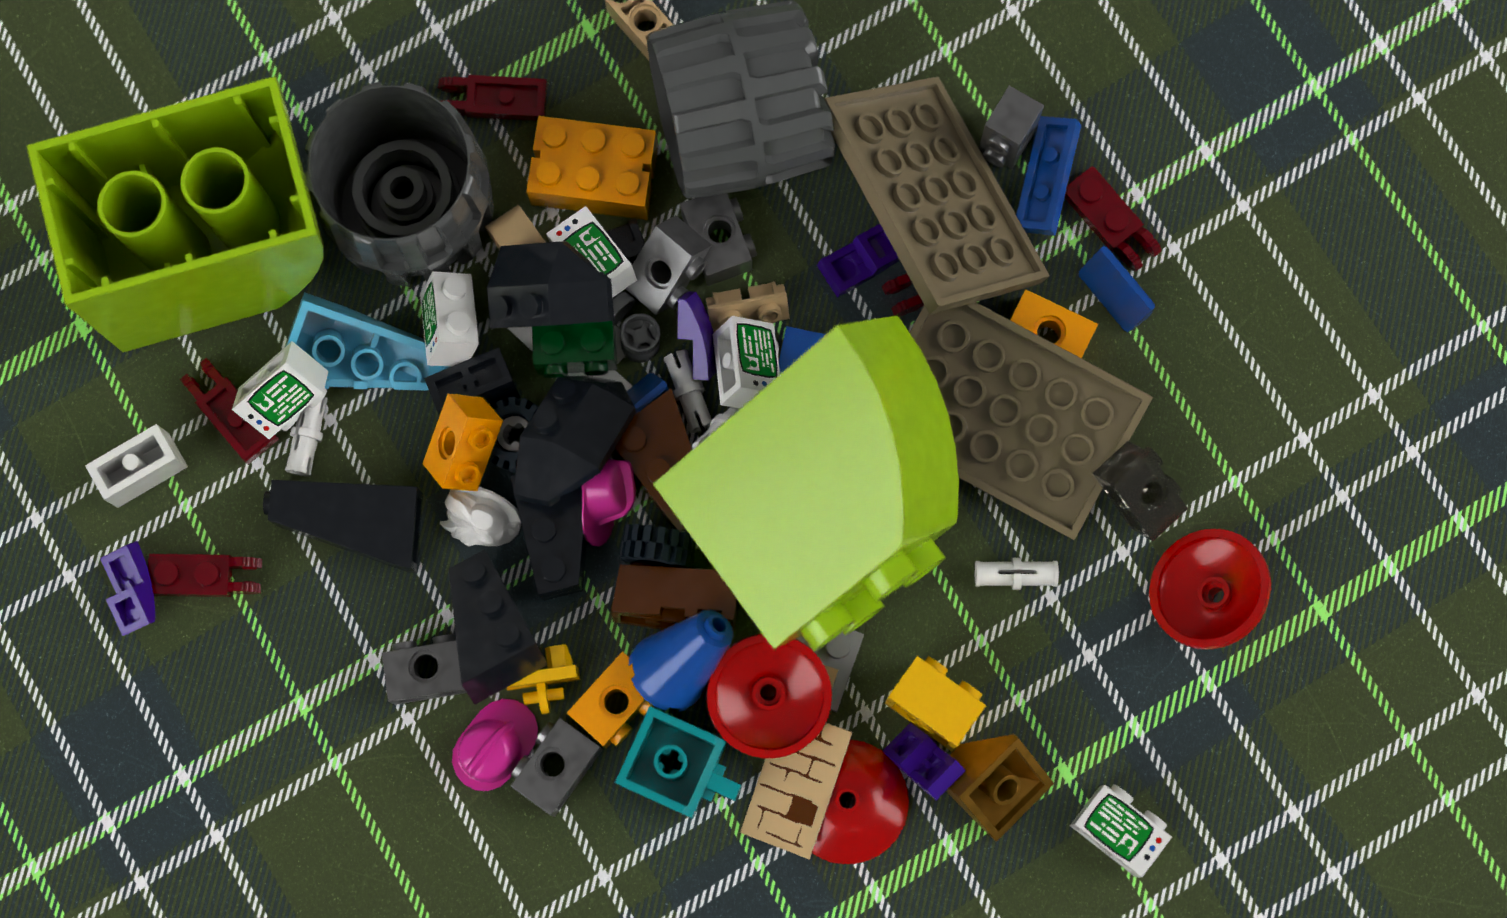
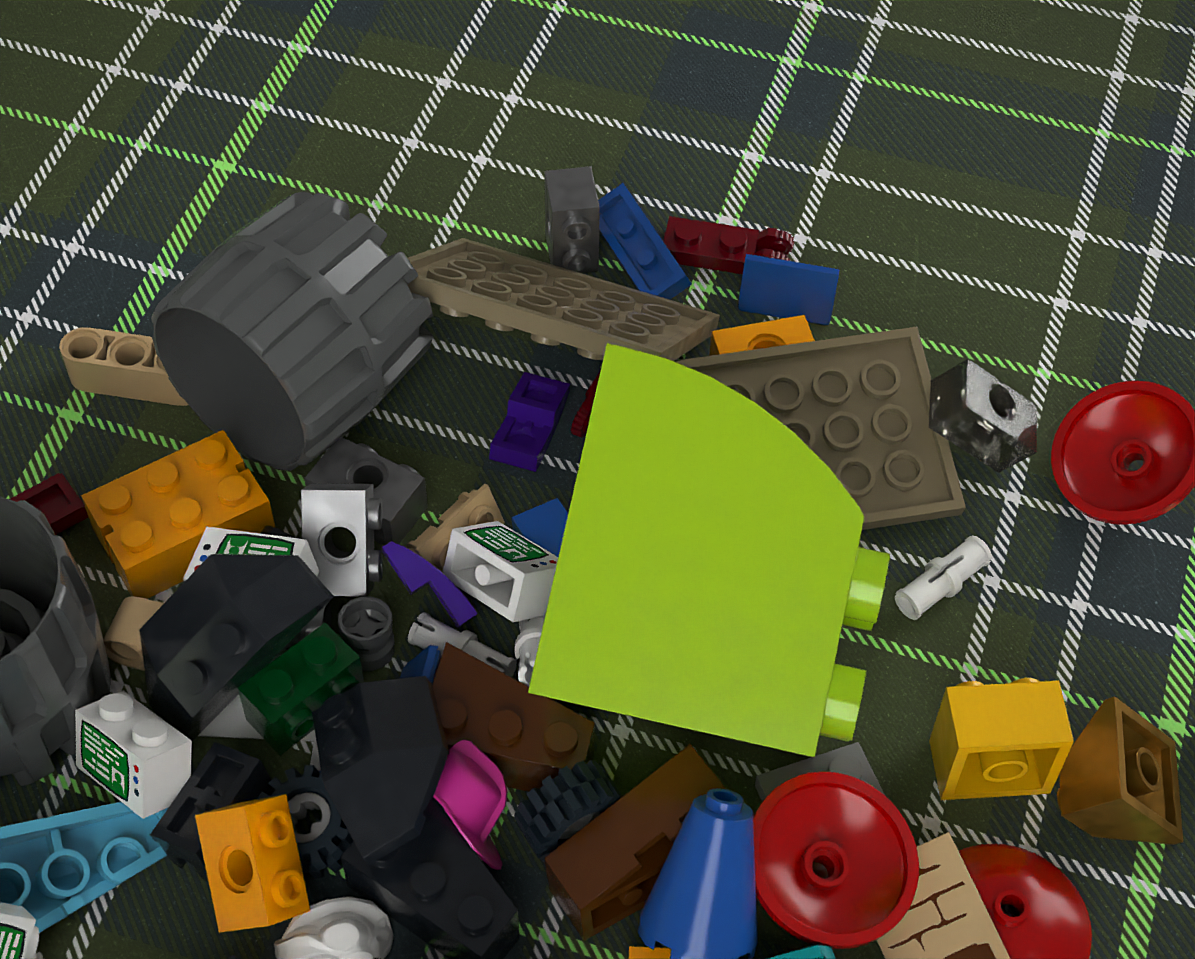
camera: 45 degrees left, 25 degrees down
(923, 761) = (1044, 812): dark purple slope -> none

